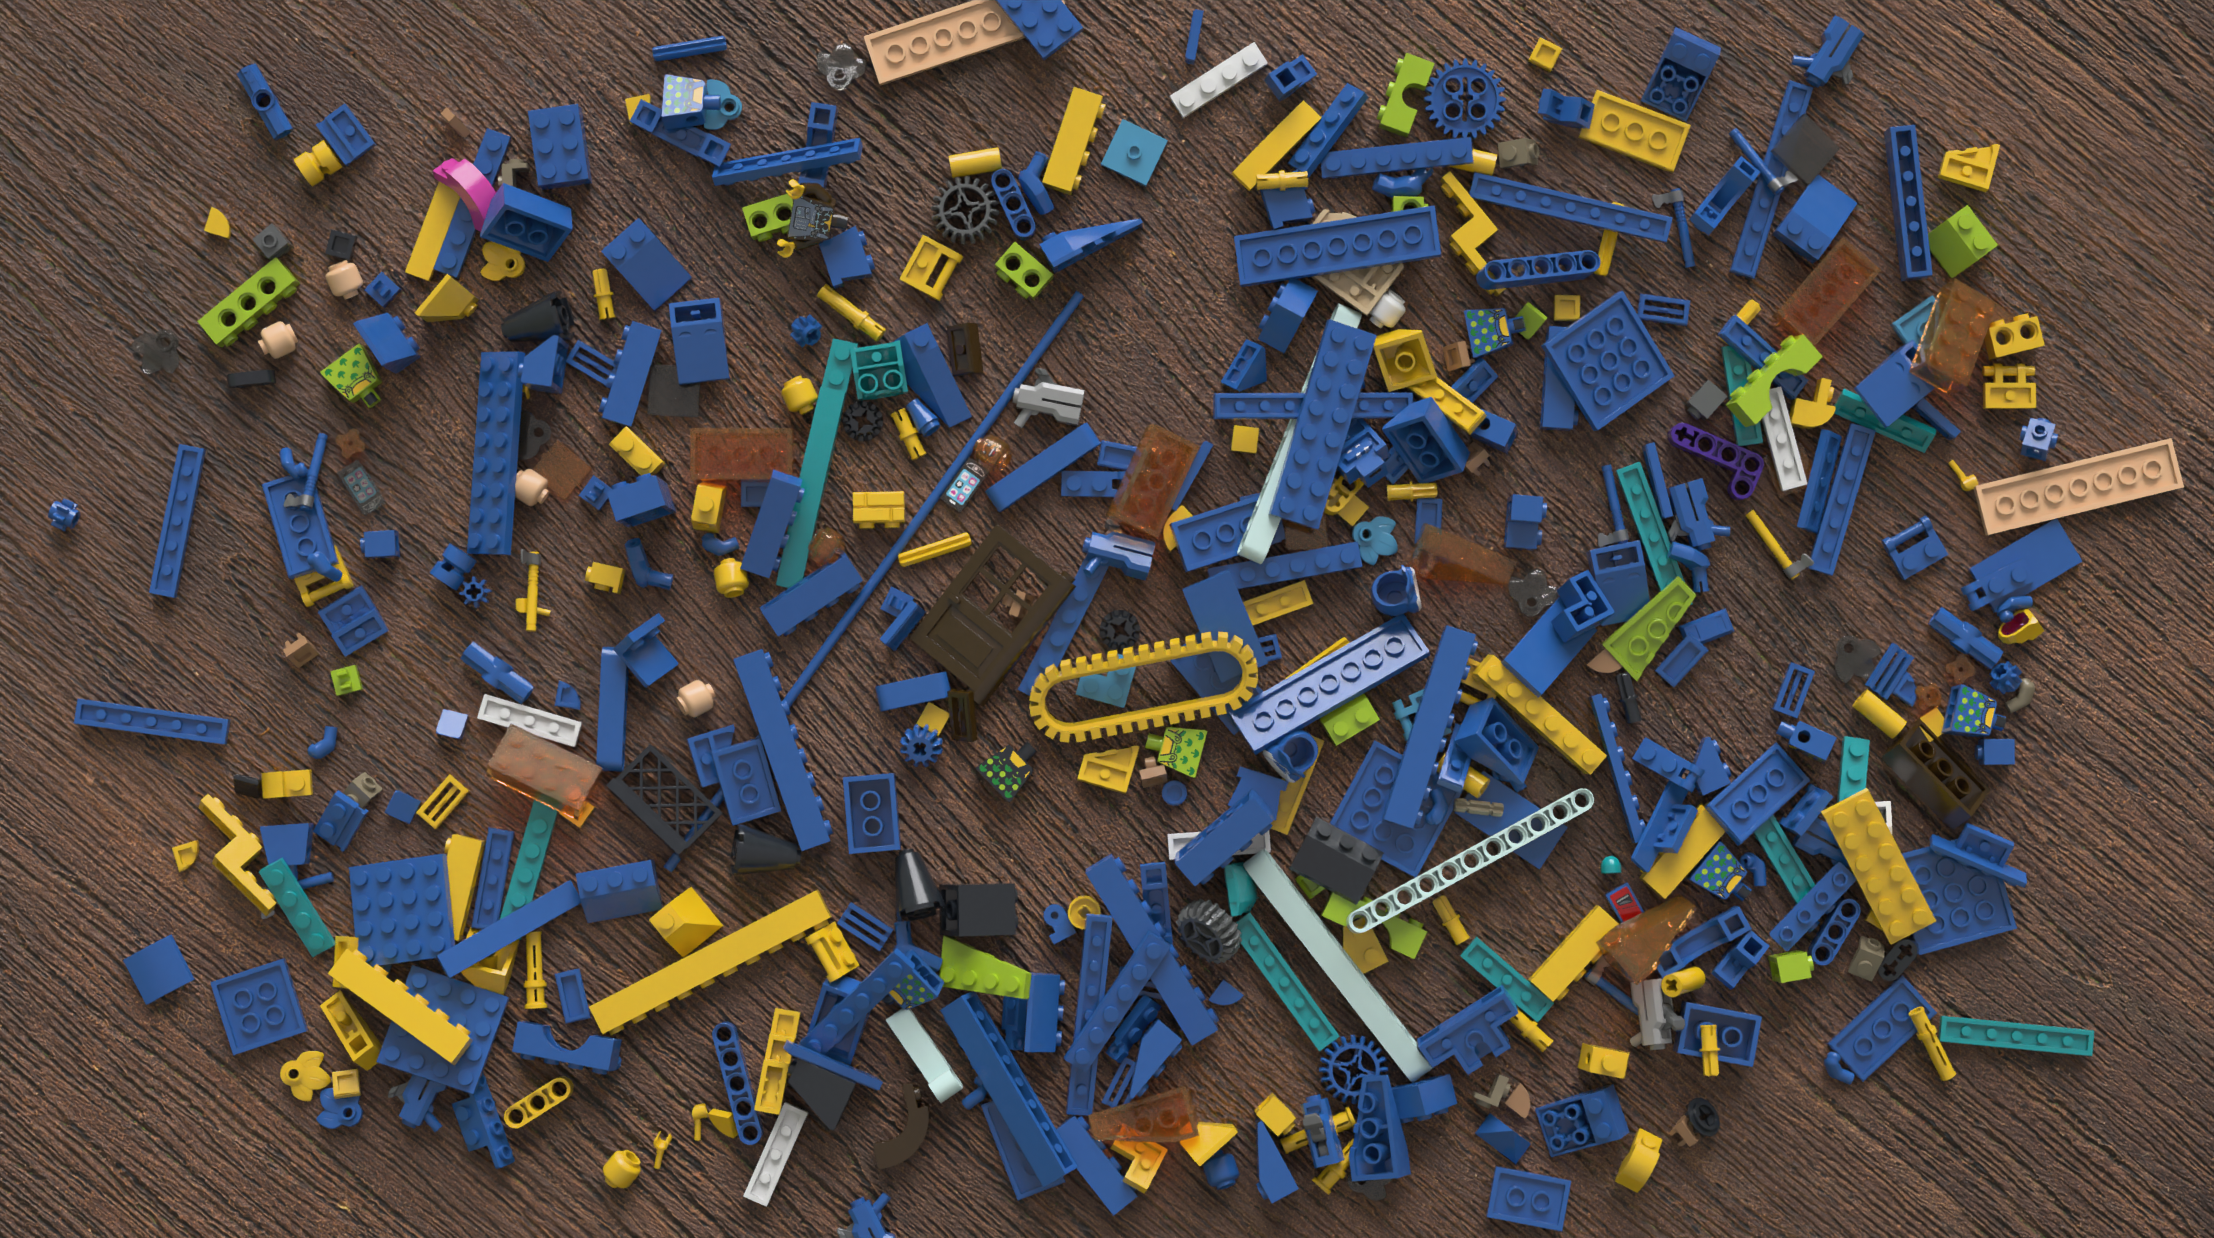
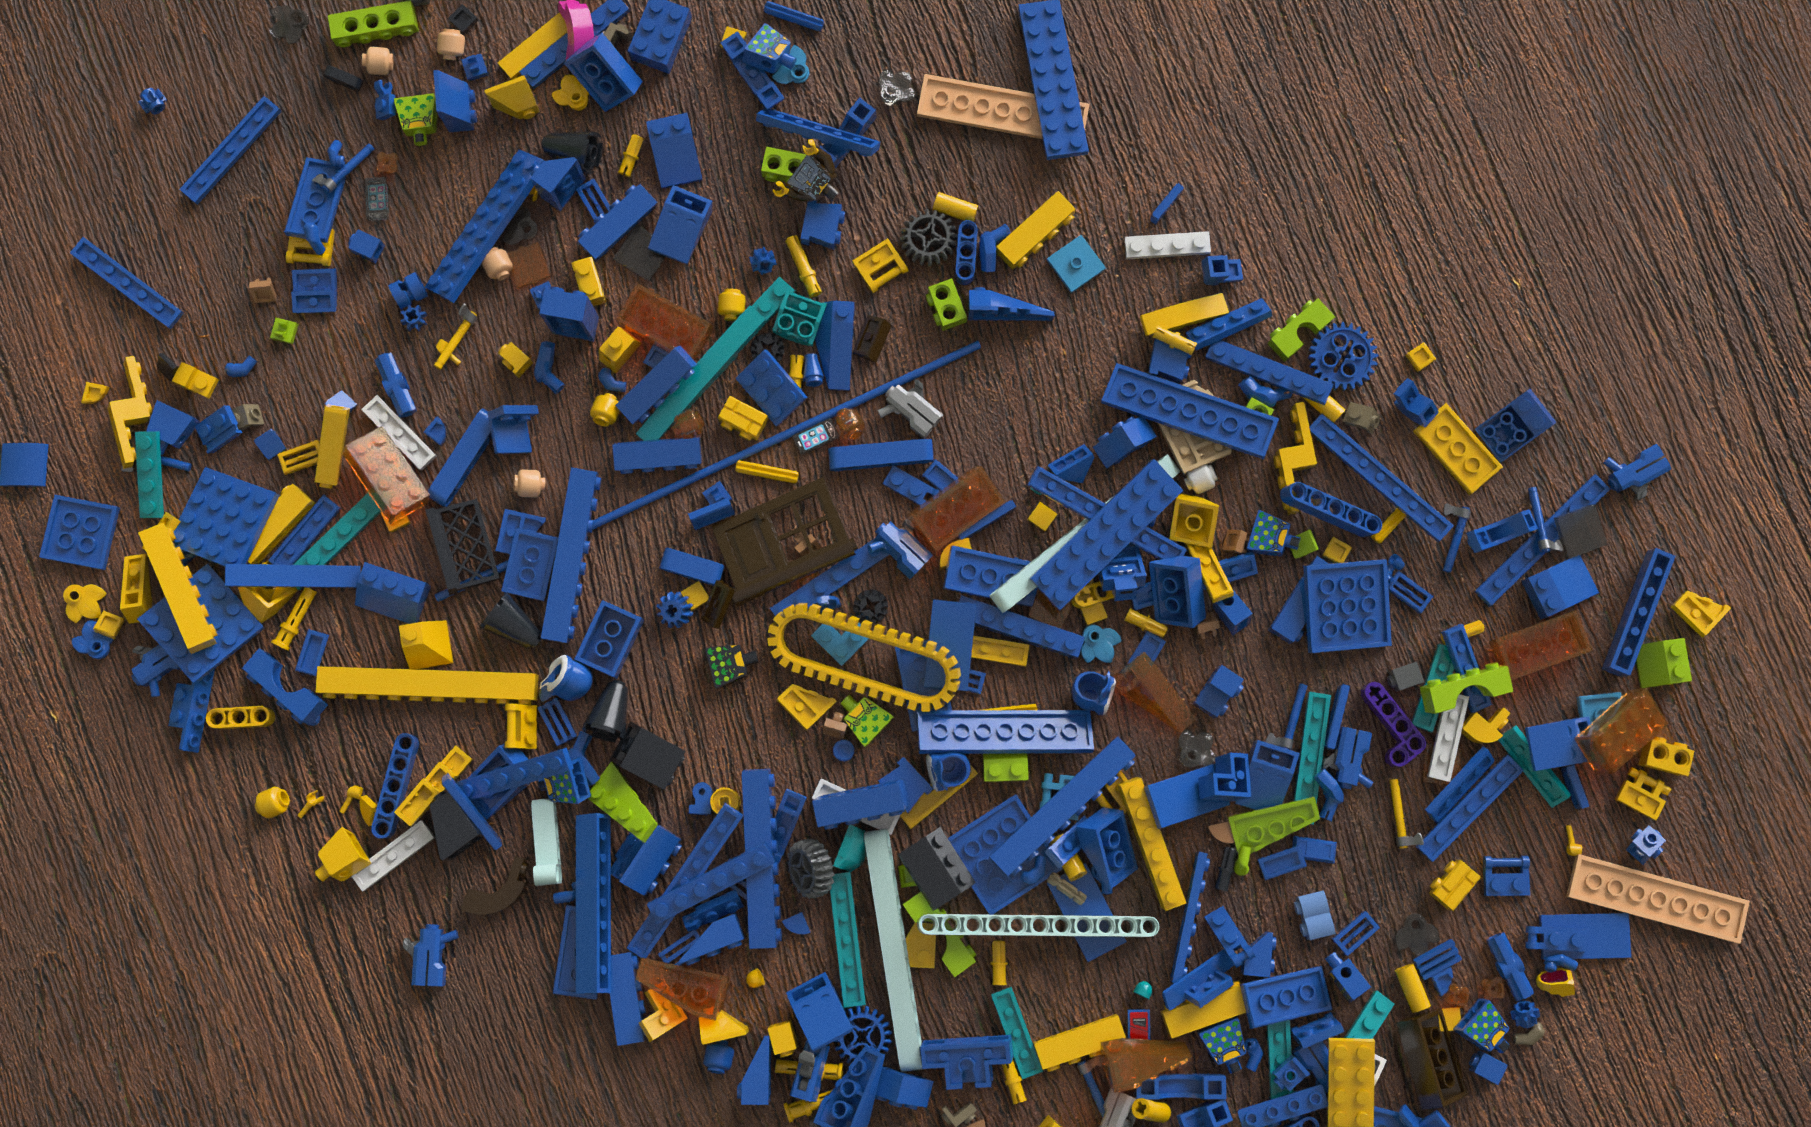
camera: 30 degrees right, 5 degrees down
(311, 380) = (384, 103): none -> blue plate
(470, 772) = (331, 445): none -> yellow slope
(726, 1184) = (342, 857): none -> yellow torso
(861, 879) = (571, 684): none -> blue piece
(890, 459) = (771, 387): none -> blue plate
(1075, 650) = (830, 602): none -> blue tile
(1213, 1072) = (755, 978): none -> yellow hinge
(1298, 1068) = (819, 1011): none -> blue slope
(1632, 287) = (1395, 562): none -> blue arm
(1641, 685) = (1241, 865): none -> lime arm
(1742, 695) = (1314, 915): none -> medium blue brick
(1796, 860) = (1290, 1064): none -> blue brick
(1866, 586) = (1454, 884): none -> yellow brick

